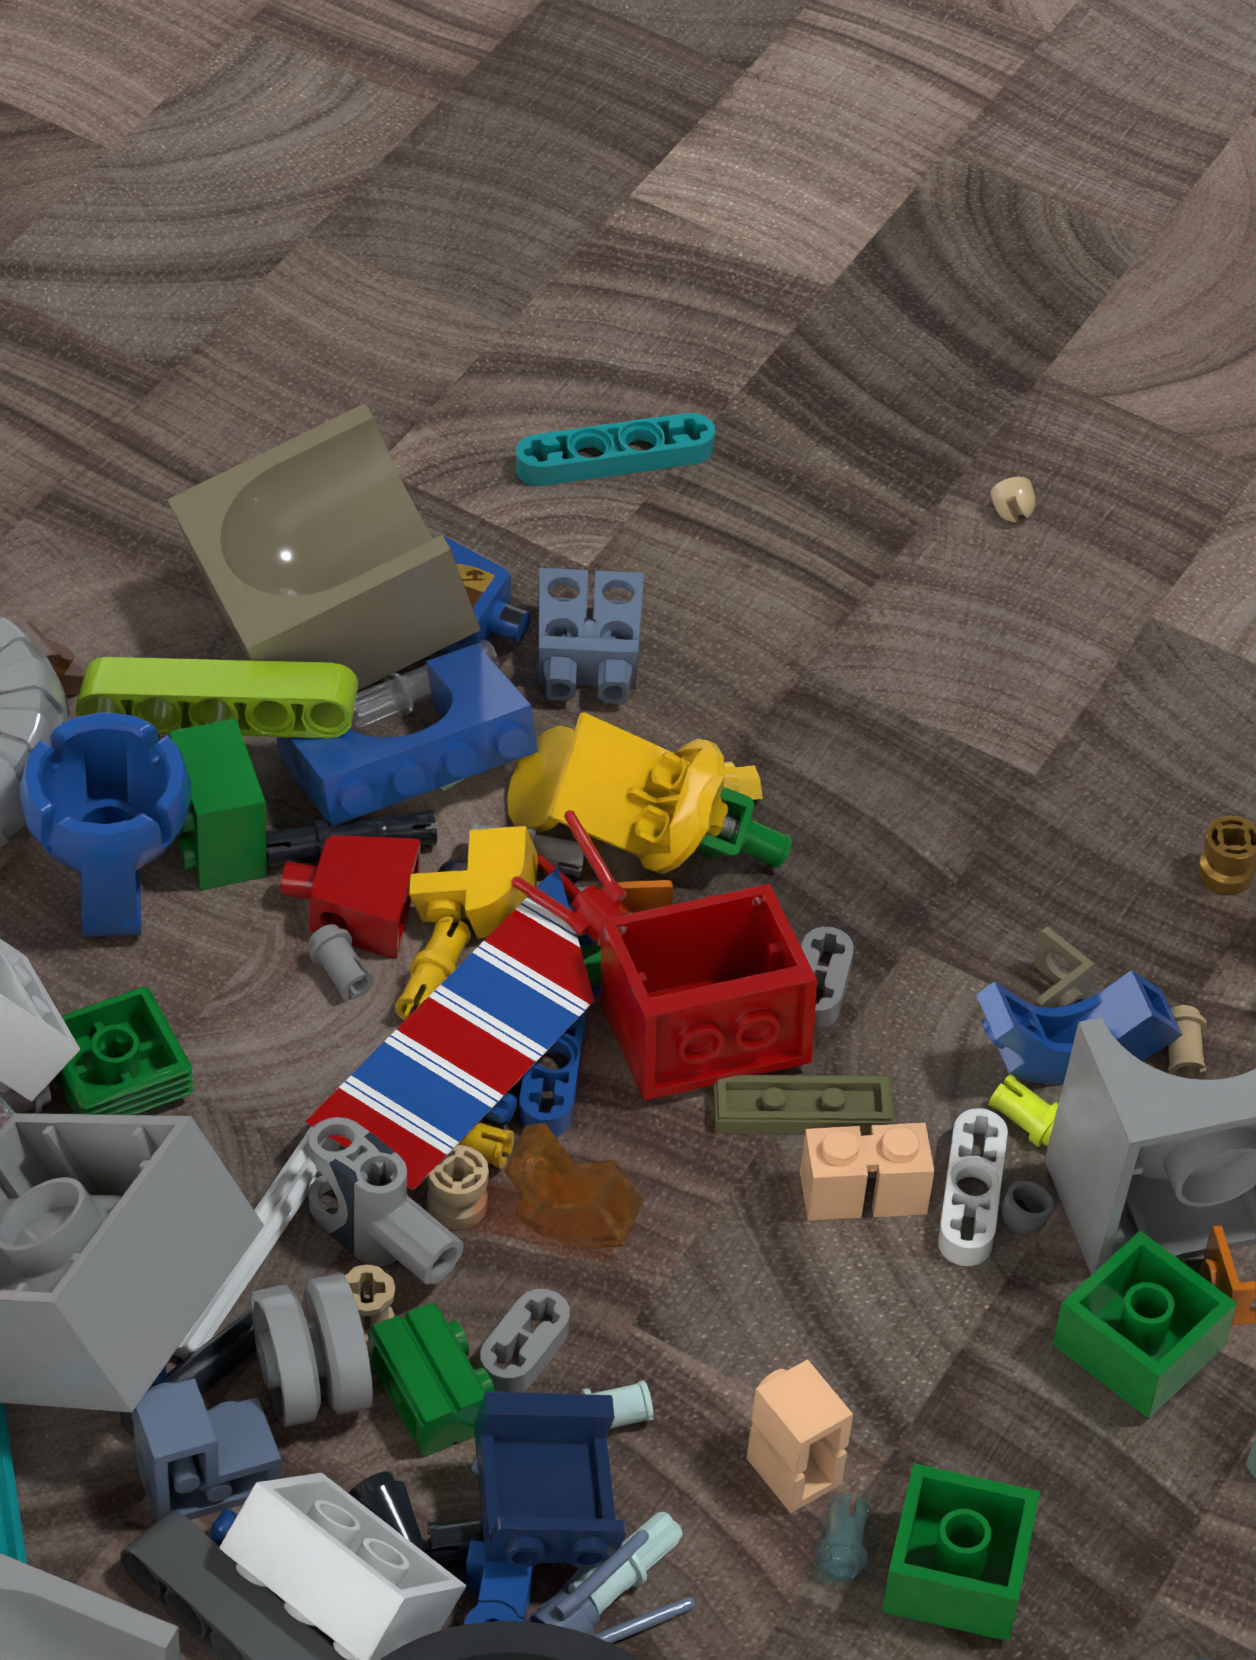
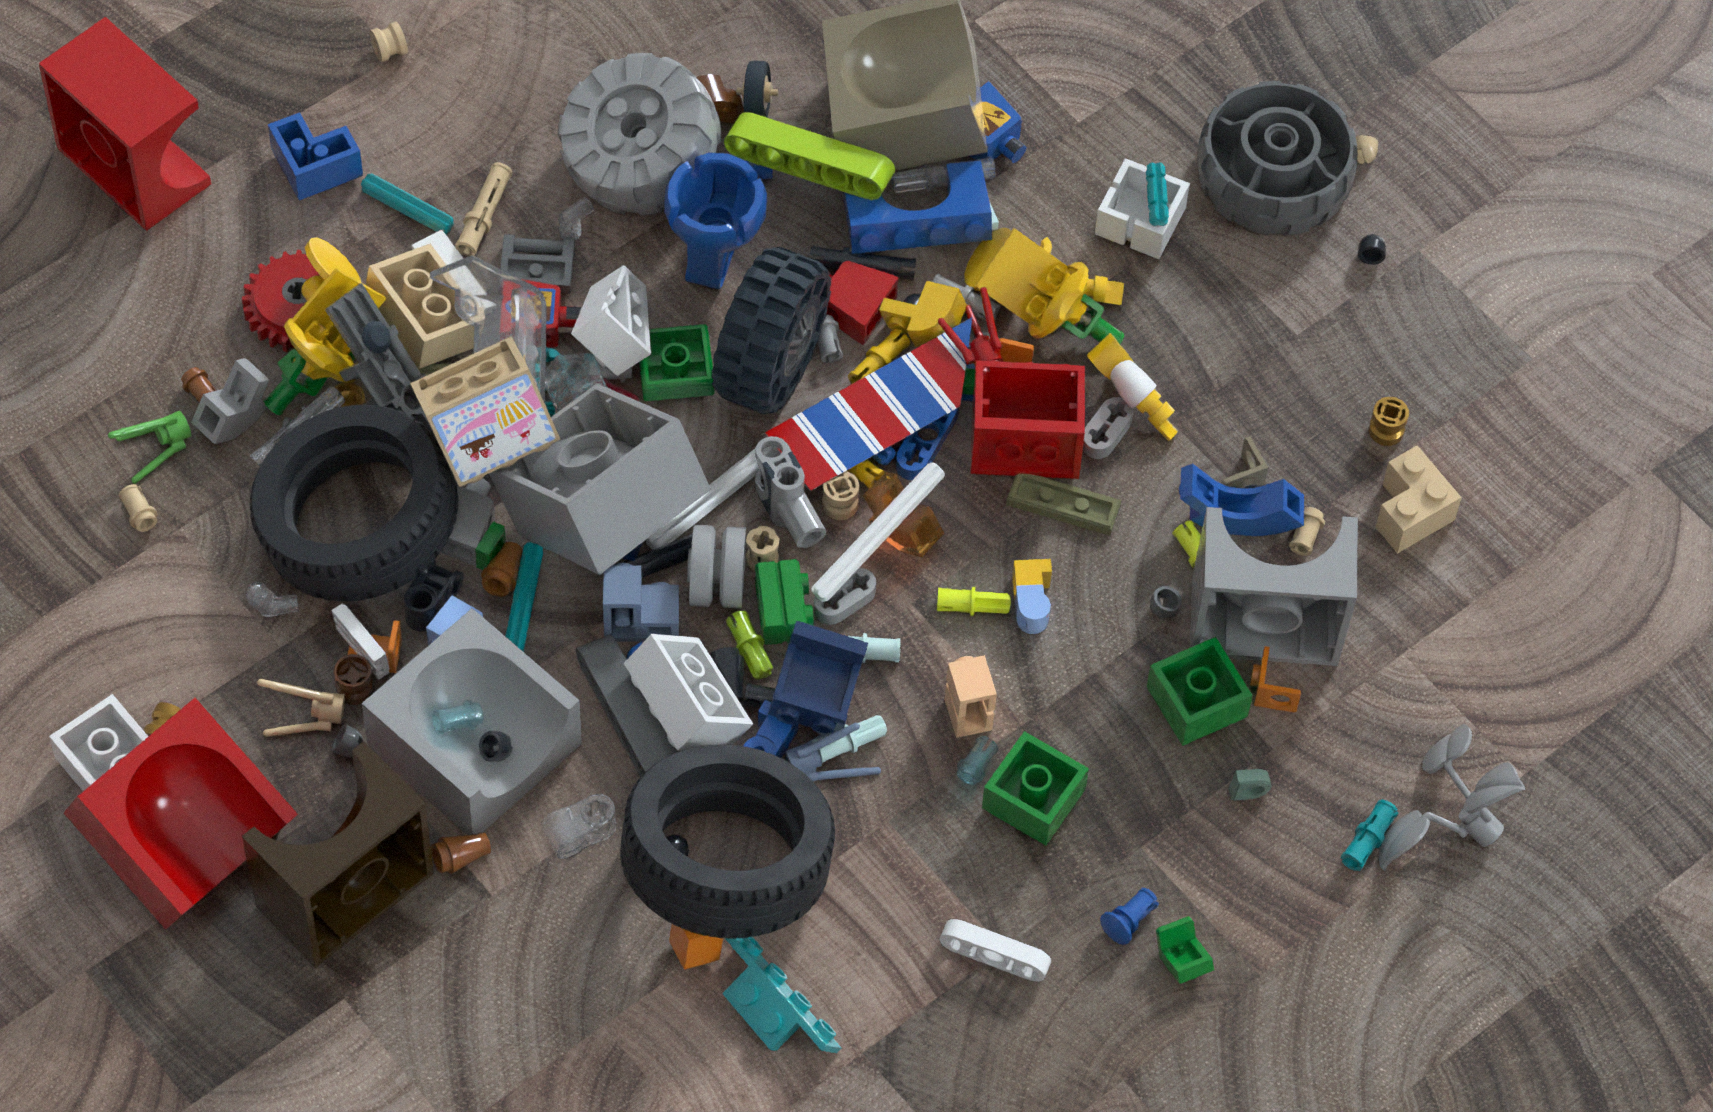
camera: 20 degrees right, 10 degrees up
(93, 631) = (757, 88): none -> black wheel
(227, 808) = (787, 213): green brick -> none
(264, 959) = (771, 330): none -> black wheel
(406, 1462) = (750, 645): none -> lime axle
(546, 1224) = (877, 532): none -> white axle
(585, 650) = (1057, 170): sand blue hips -> none
(613, 443) = (1126, 52): teal beam -> none
(729, 1291) = (971, 601): none -> neon yellow axle
(741, 652) = (1126, 212): none -> white piece
(764, 620) = (1157, 194): none -> teal axle
(814, 1255) = (1031, 603): none -> leg
(837, 899) = (1132, 383): none -> yellow piece
(841, 1160) = (1096, 549): light nougat piece -> none
(904, 537) = (1277, 158): none -> dark grey wheel
(957, 1203) = (1141, 595): white beam -> none
(1090, 629) = (1372, 249): none -> black hinge

